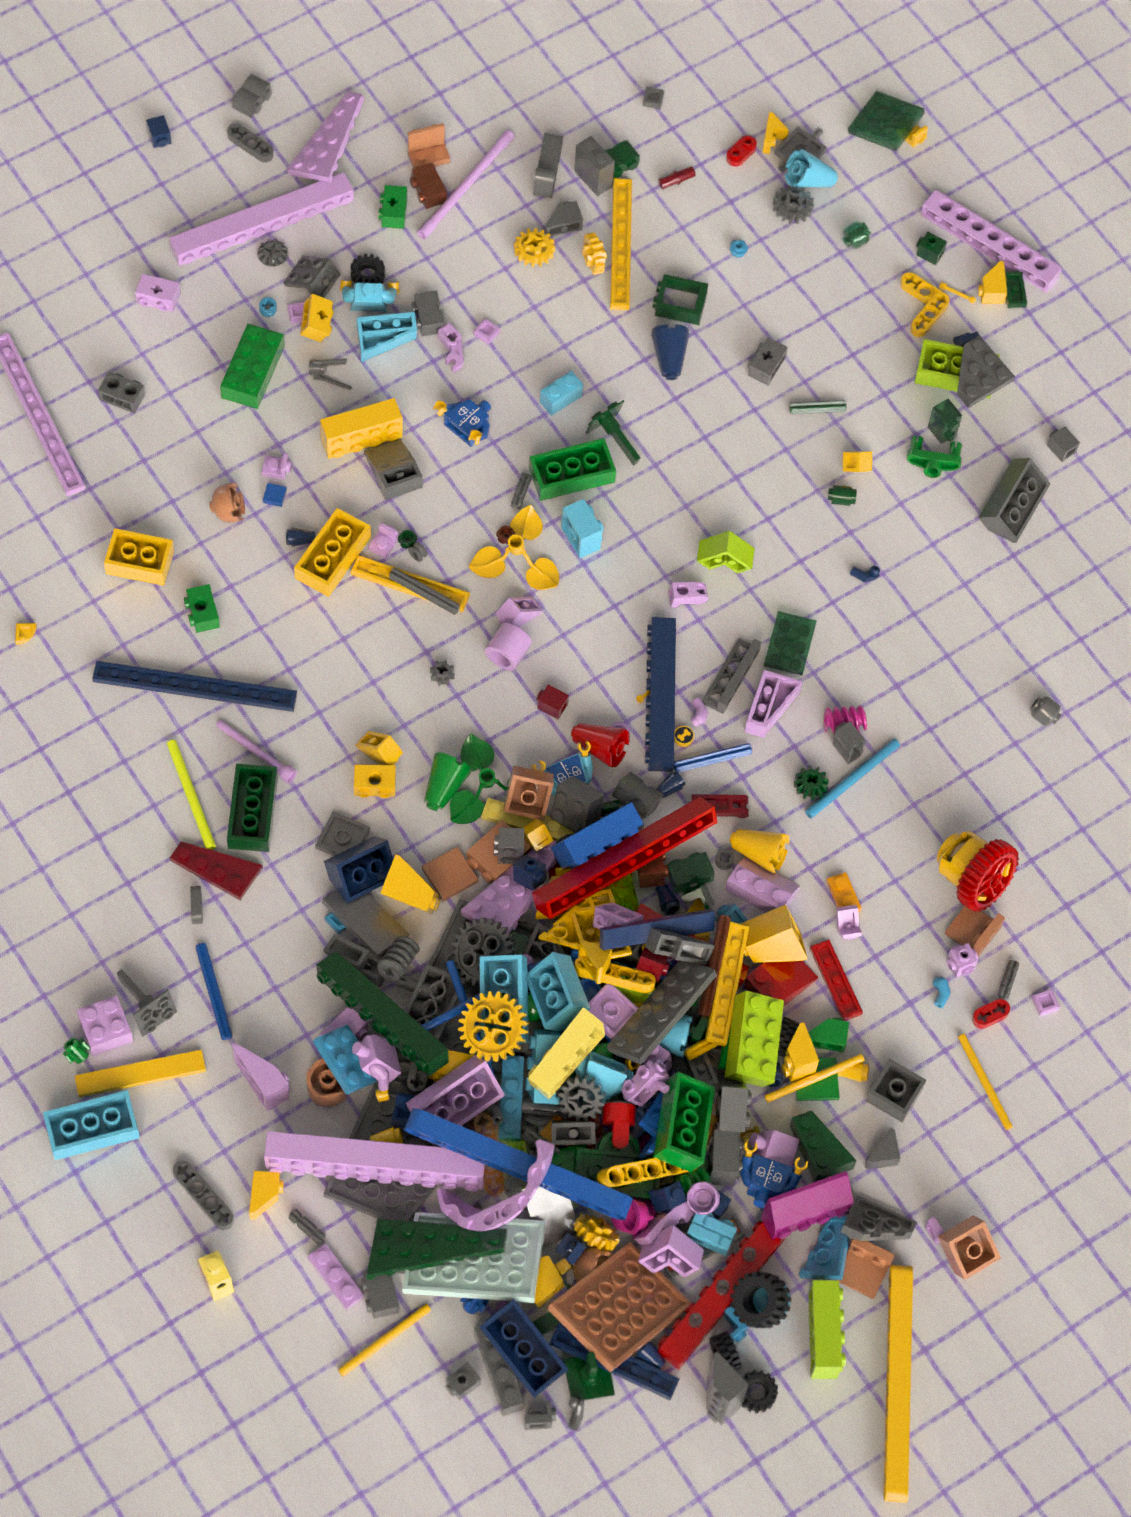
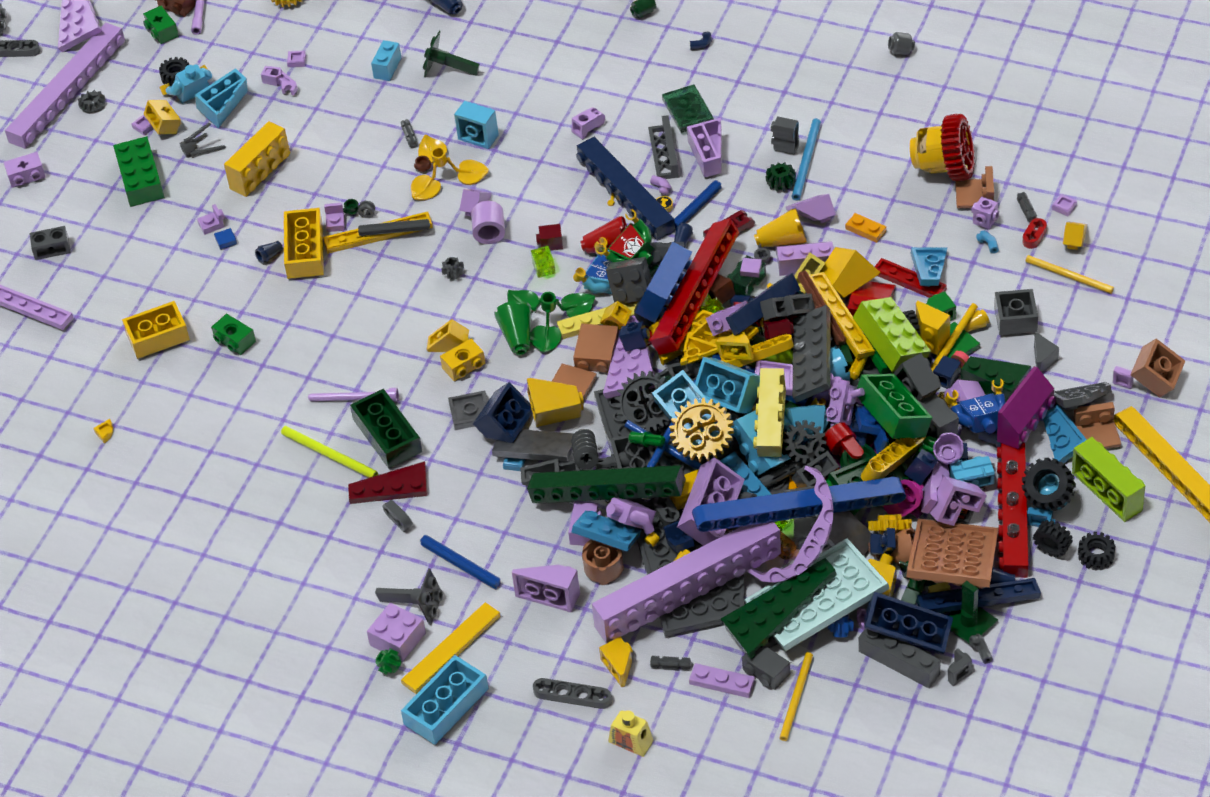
camera: 25 degrees left, 15 degrees down
(194, 686) = (270, 384): dark blue plate -> none
(228, 503) = (194, 260): nougat cylinder -> none
(263, 304) = (115, 137): dark azure bush -> none
(314, 274) = (135, 92): dark grey bracket -> none
(394, 469) = (304, 171): dark grey slope -> none
(429, 316) = (250, 69): dark grey brick -> none
(451, 992) = (646, 439): none -> green axle
(461, 1390) = (880, 681): dark grey brick -> none
(466, 419) = (330, 114): torso -> none
(509, 845) = (605, 327): flat silver brick -> none
(525, 716) = (543, 261): none -> clear neon green brick
(528, 792) = (586, 293): nougat brick -> none
(572, 469) = (436, 97): green brick -> none
(604, 771) = (631, 243): none -> torso
(696, 869) = (750, 267): none -> lavender tile
(699, 890) = (766, 278): panel -> none
(724, 1390) = (1075, 551): dark grey slope -> none
(726, 550) = (592, 78): lime brick -> none
(744, 909) = (811, 265): none -> light yellow slope
(783, 1107) = (948, 371): none -> dark blue brick
(804, 1103) = (960, 356): none -> coral tile
(810, 839) = (815, 208): none -> lavender slope
(836, 717) = (761, 129): dark pink piece -> none
(848, 922) = (884, 238): lavender bracket -> none
(863, 979) = (928, 264): none -> dark azure wing
(1024, 1043) = (1074, 235): none -> yellow slope

